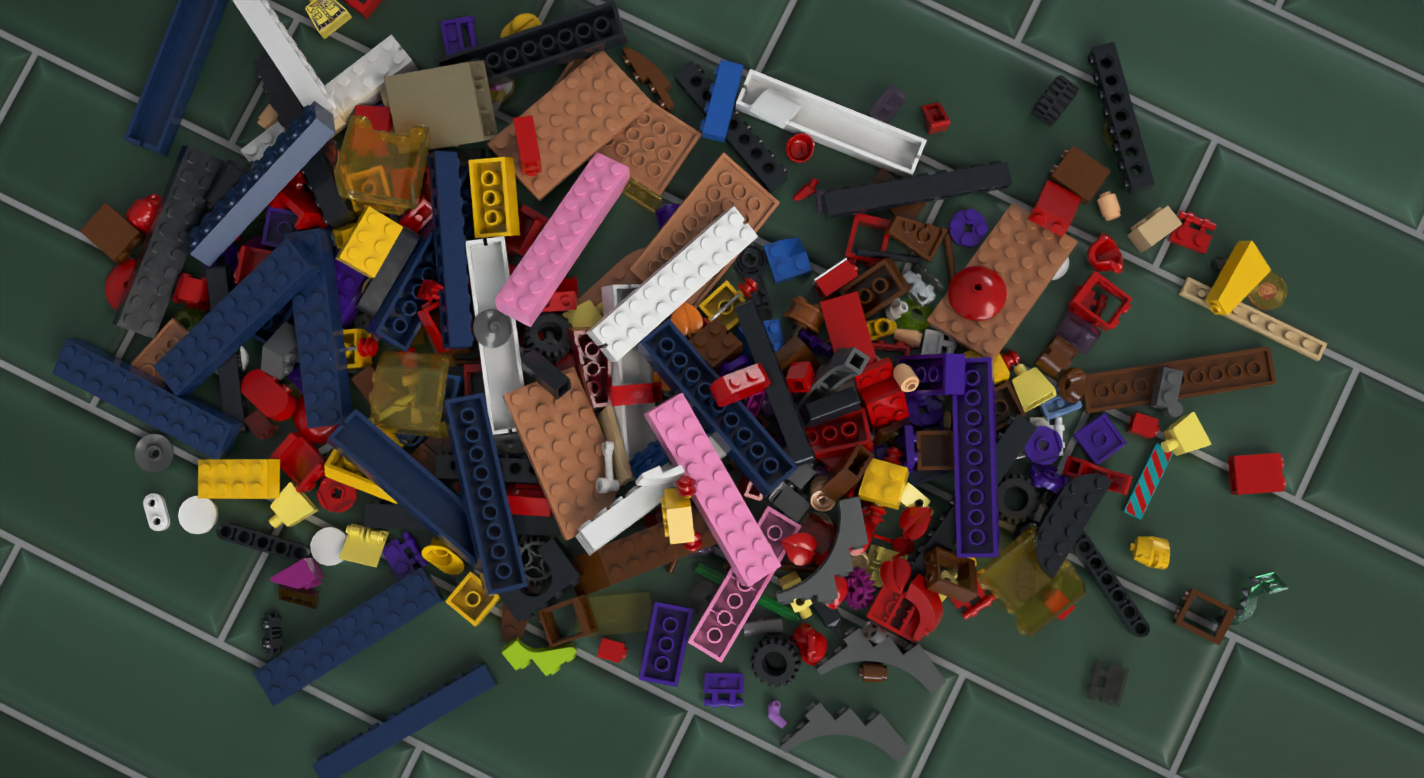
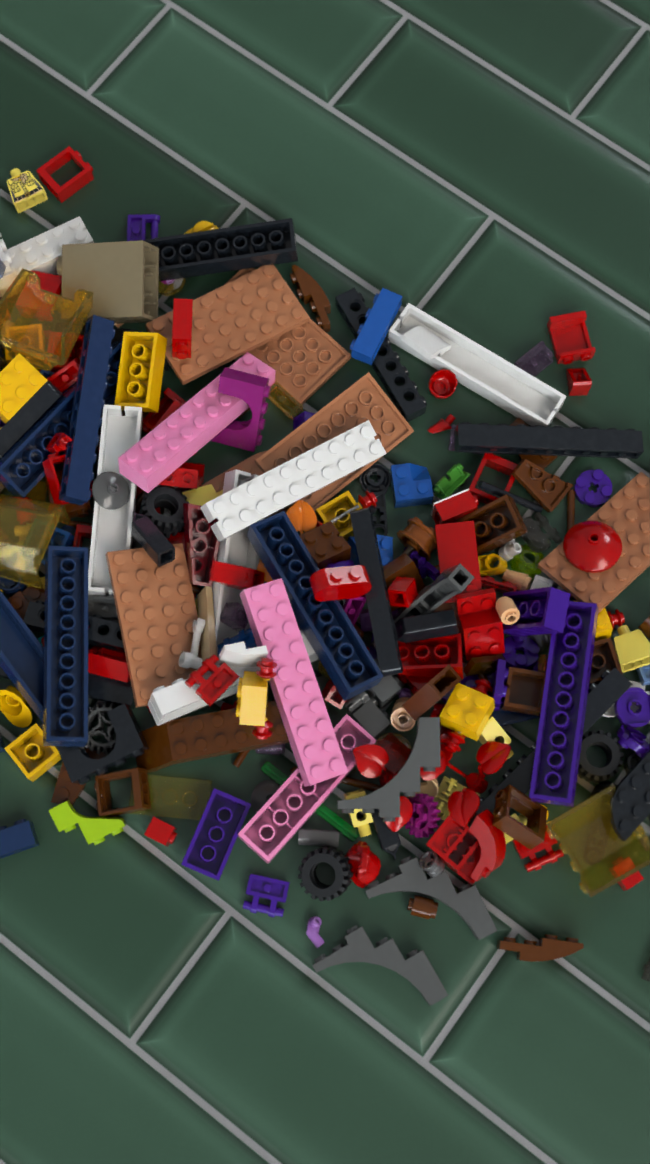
camera: 10 degrees right, 10 degrees down
(613, 199) = (253, 391): none -> magenta arch
(639, 429) = (234, 616): none -> clear purple brick
(639, 509) = (216, 684): none -> red plate
(822, 256) = (444, 487): none -> bright green hinge
(920, 73) = (570, 337): none -> red panel
(996, 689) = (548, 949): none -> reddish brown slope

